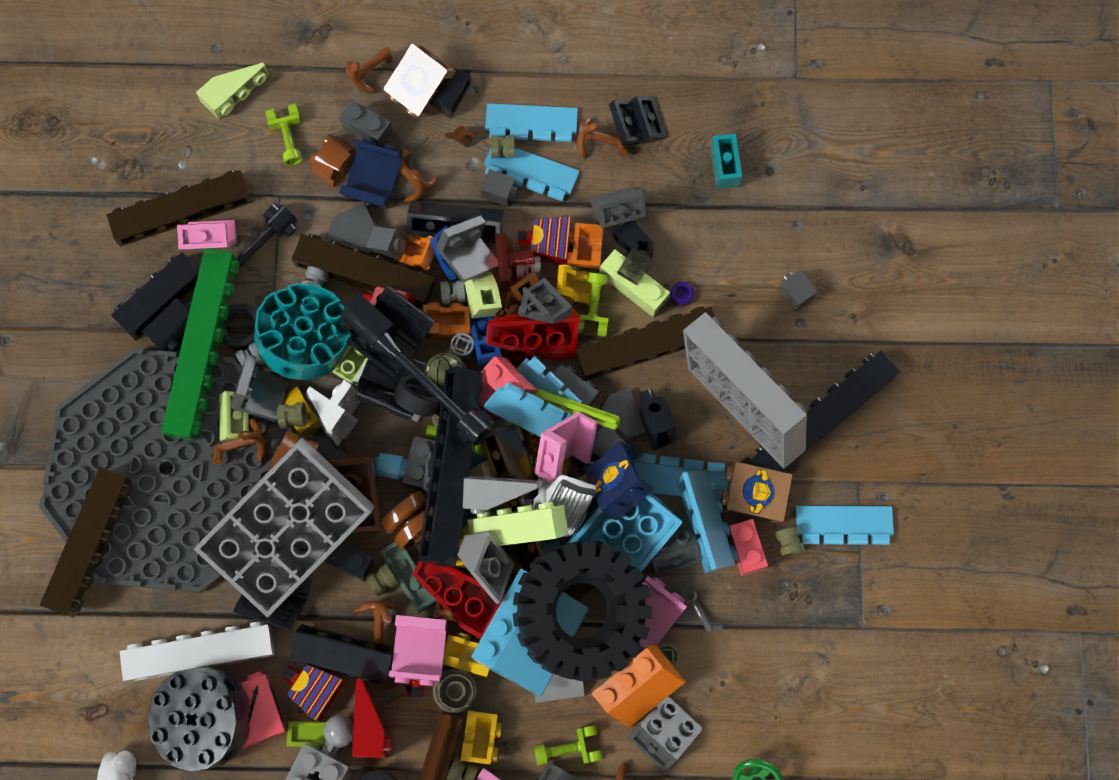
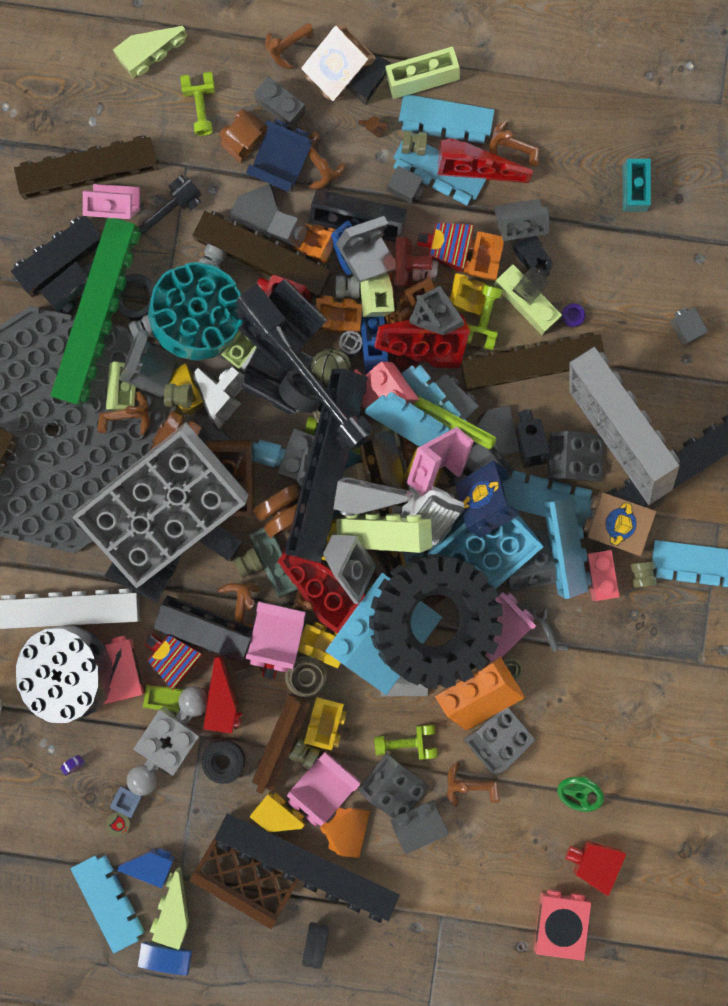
camera: 15 degrees right, 10 degrees up
(503, 80) = (423, 72): none -> yellowish green brick
(560, 158) = (468, 161): none -> red wedge
(637, 120) = (553, 130): black slope -> none
(703, 431) = (575, 456): none -> dark grey bracket

